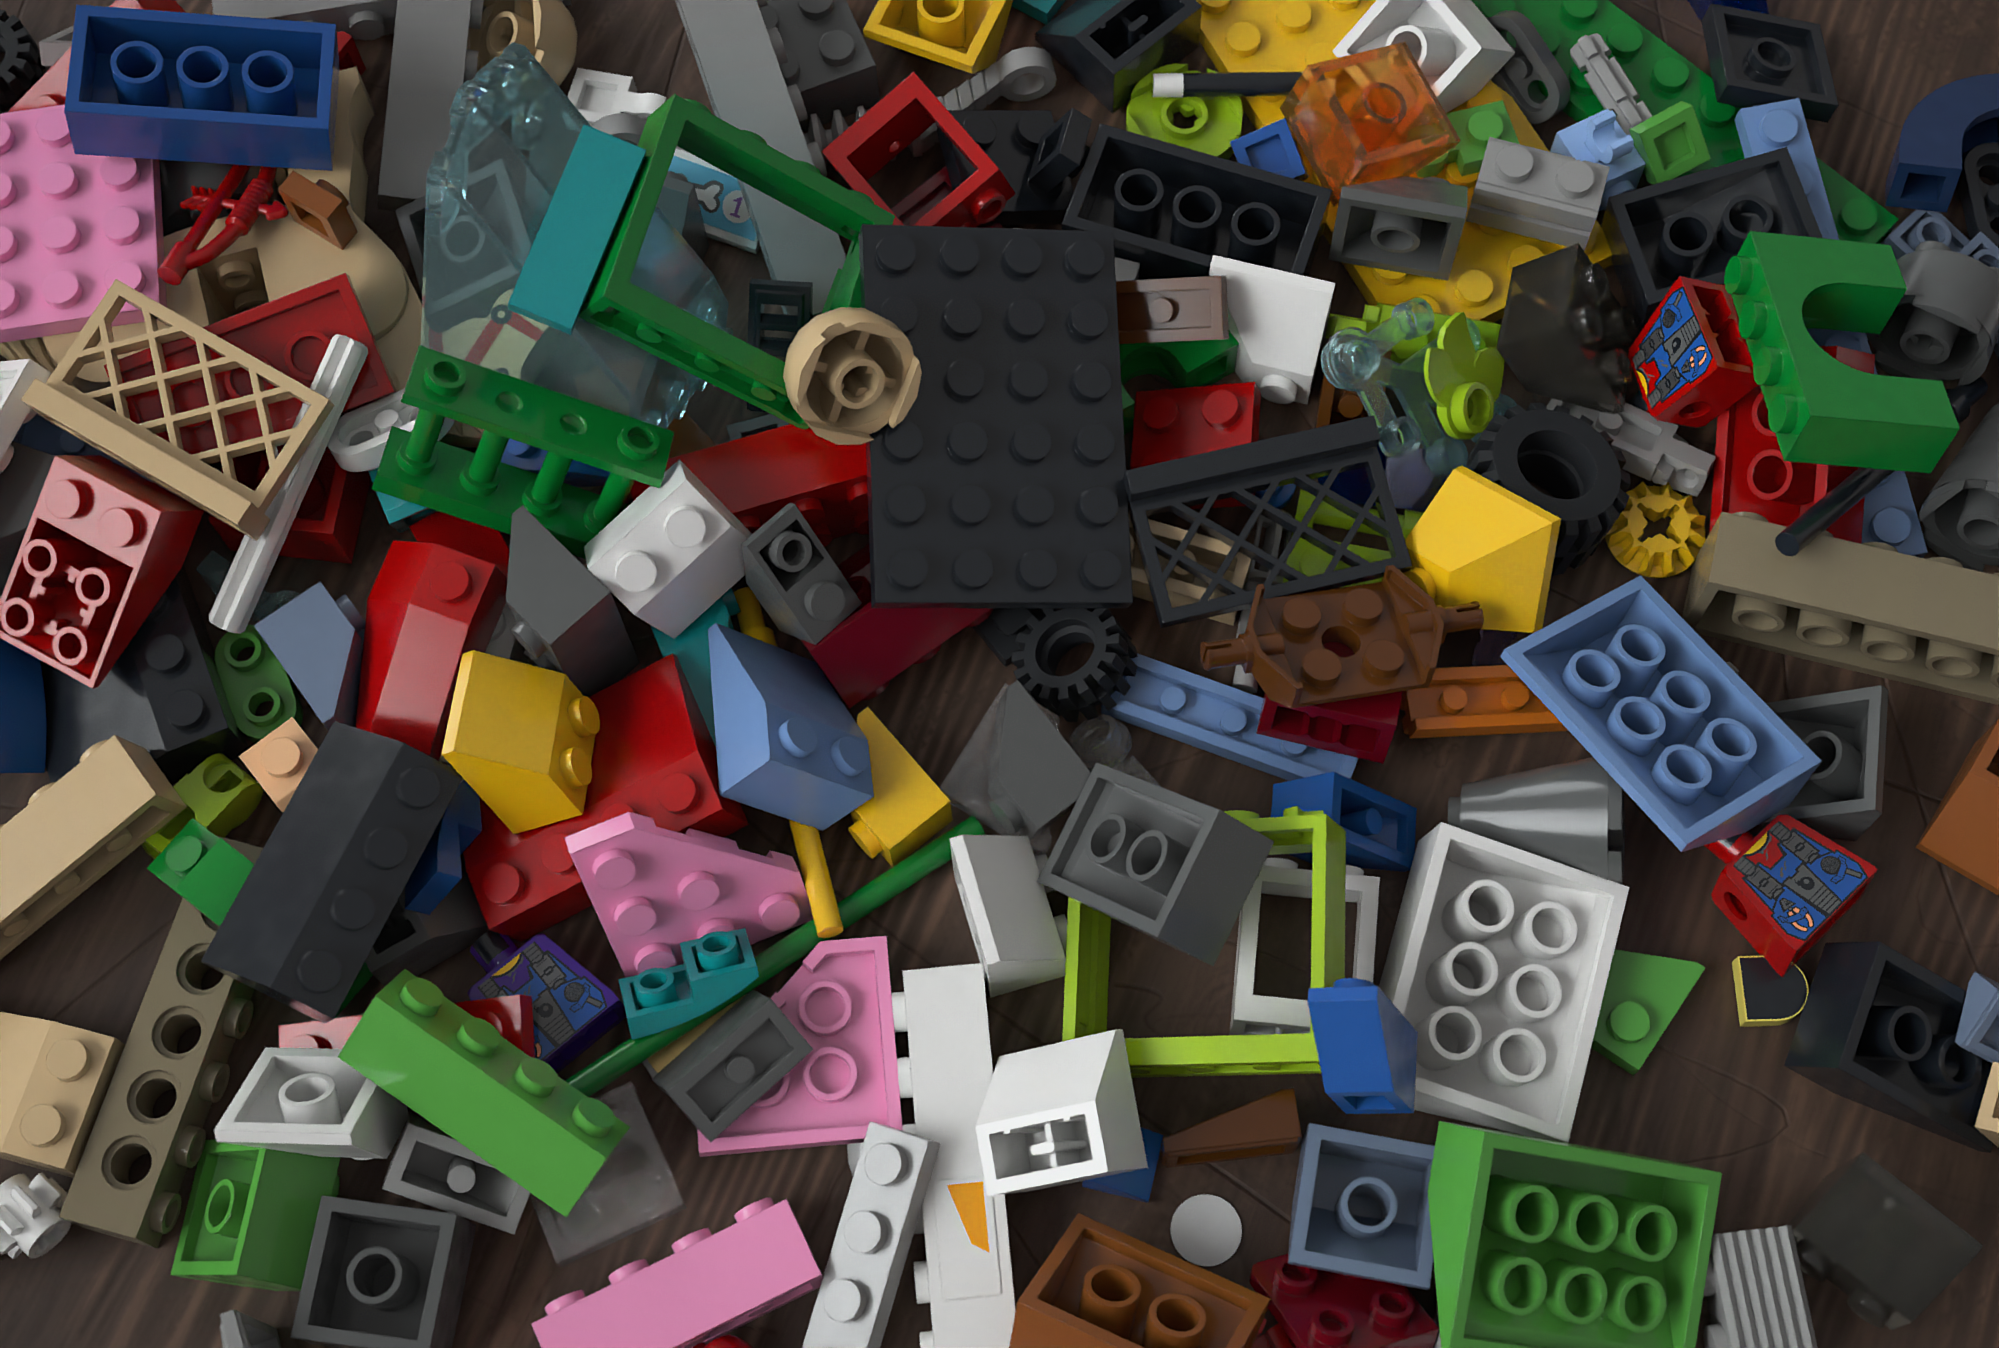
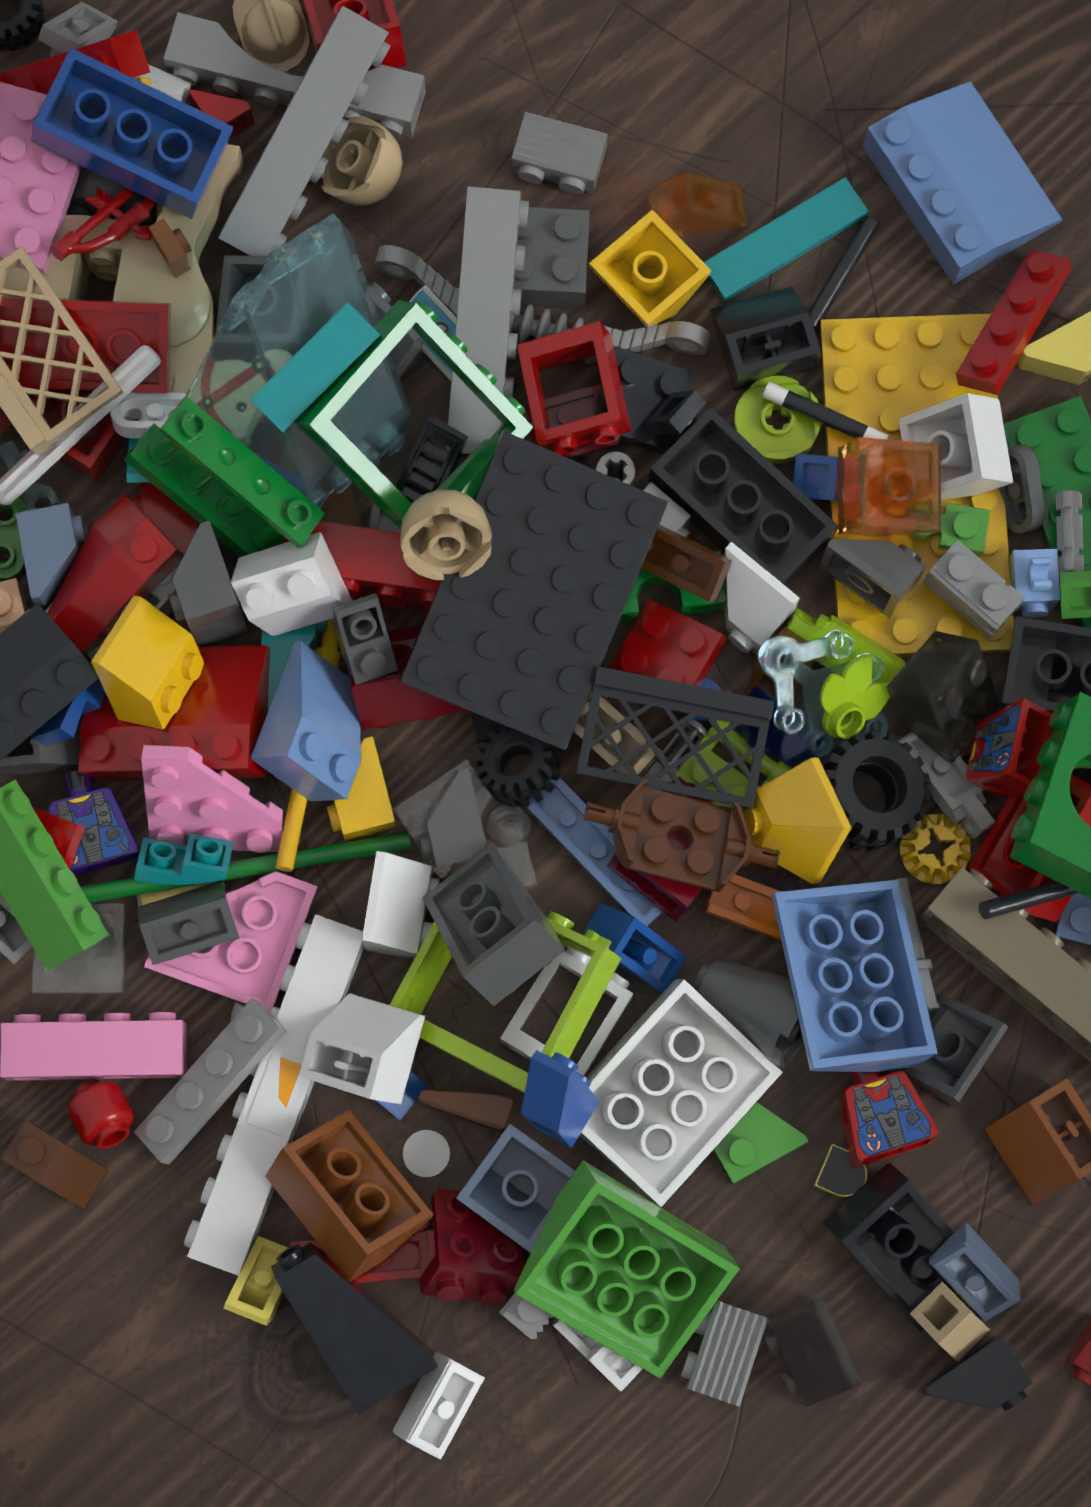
camera: 20 degrees right, 10 degrees up
(604, 94) = (402, 227): white plate -> none

